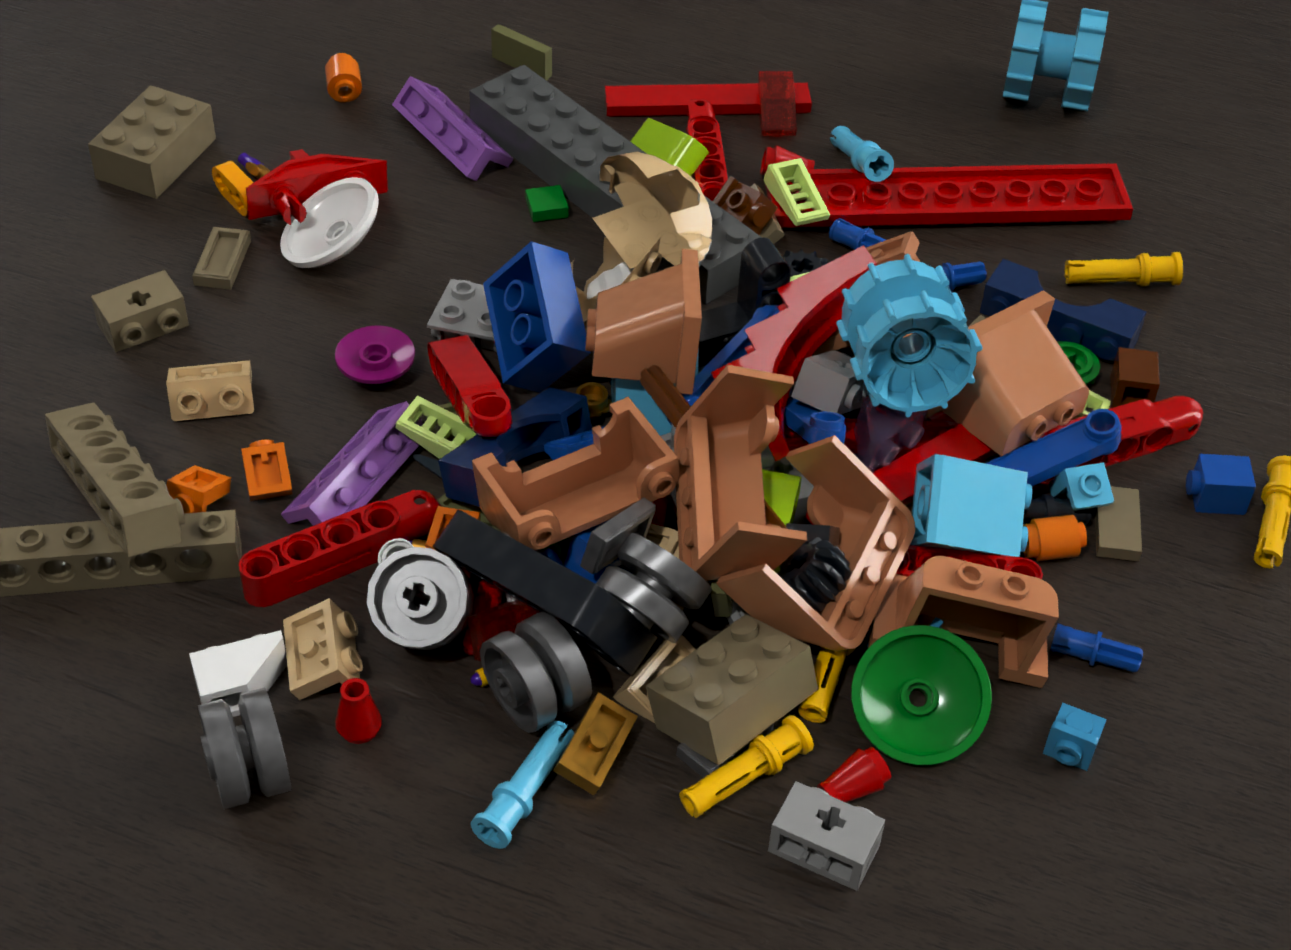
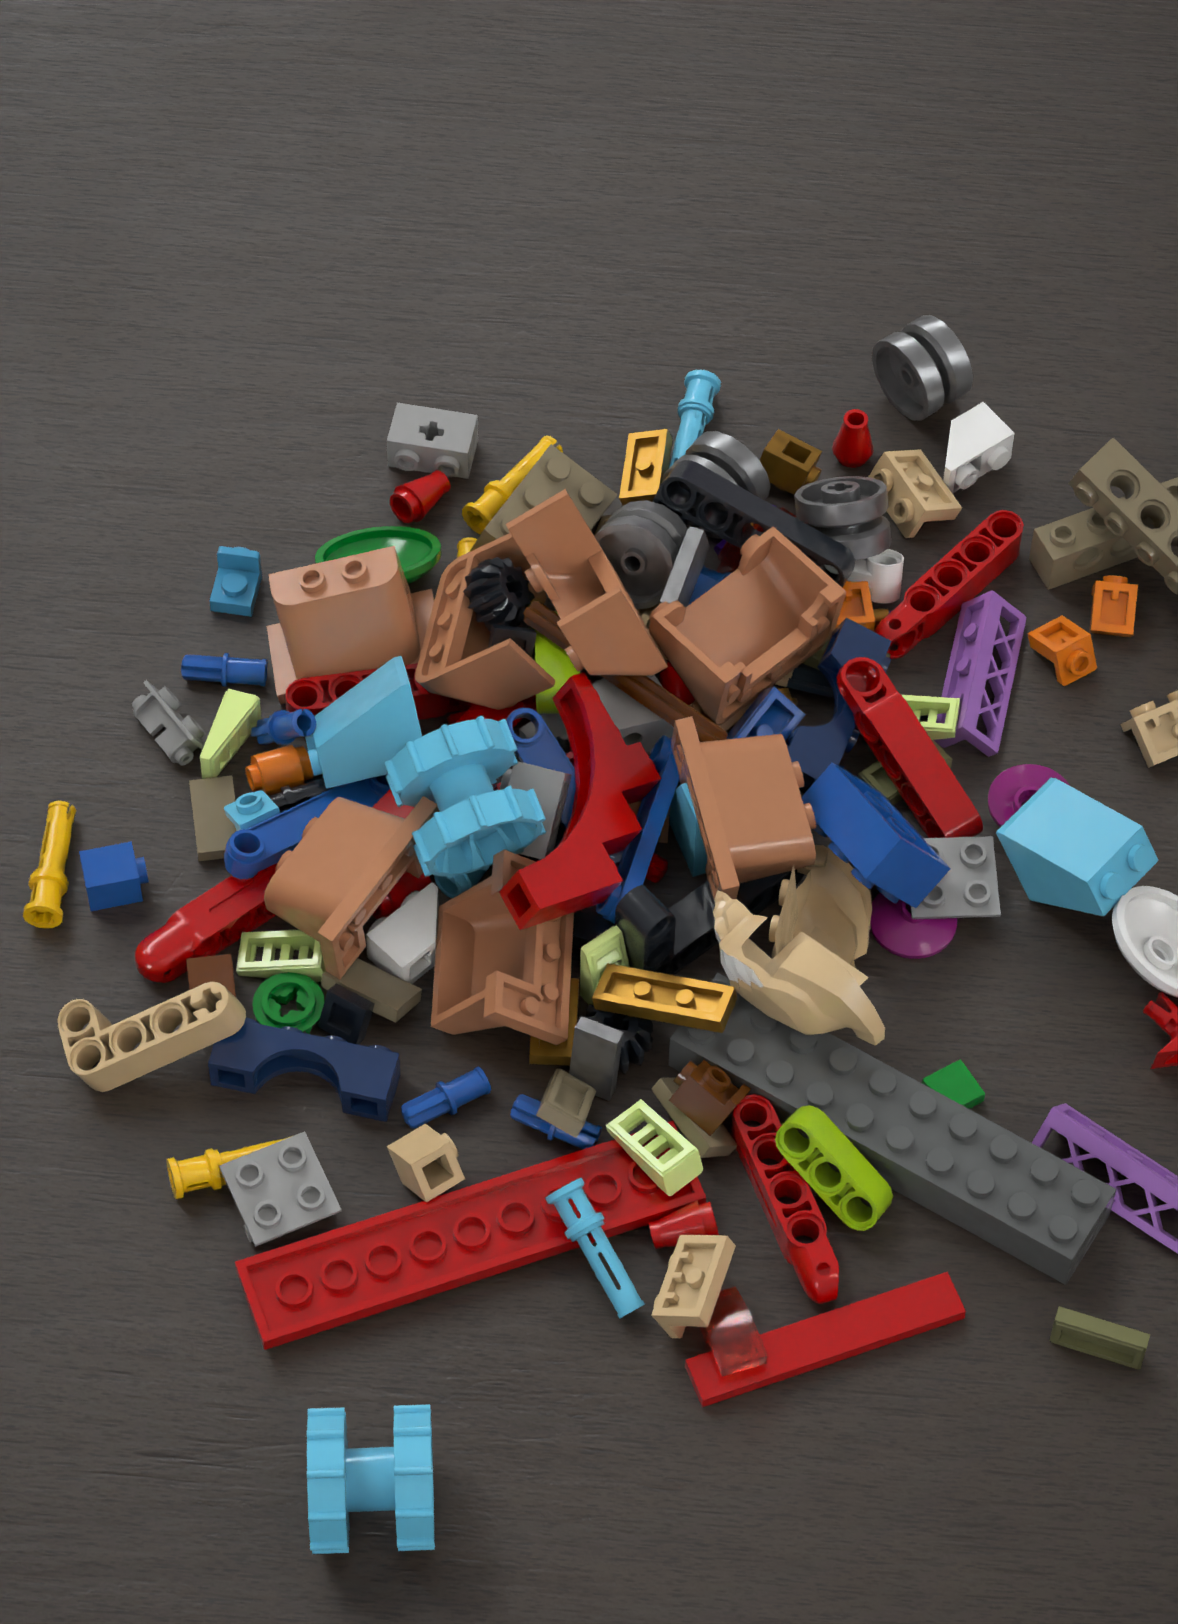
camera: 165 degrees right, 10 degrees up
(367, 274) = (1075, 850): none -> medium azure slope
(443, 704) = (790, 462): none -> pearl gold brick
(739, 227) = (665, 998): none -> pearl gold plate
(796, 117) = (692, 1282): none -> tan bracket
(825, 236) = (596, 1056): none -> flat silver tile
(858, 224) = (566, 1102): none -> dark tan tile
(976, 227) = (426, 1162): none -> tan brick
(1048, 552) = (284, 727): none -> blue axle
(1092, 234) = (280, 1189): none -> light grey hinge
(1094, 584) = (229, 730): none -> yellowish green slope
(1154, 609) = (160, 710): none -> light grey hinge
(1200, 336) = (206, 1016): none -> tan beam

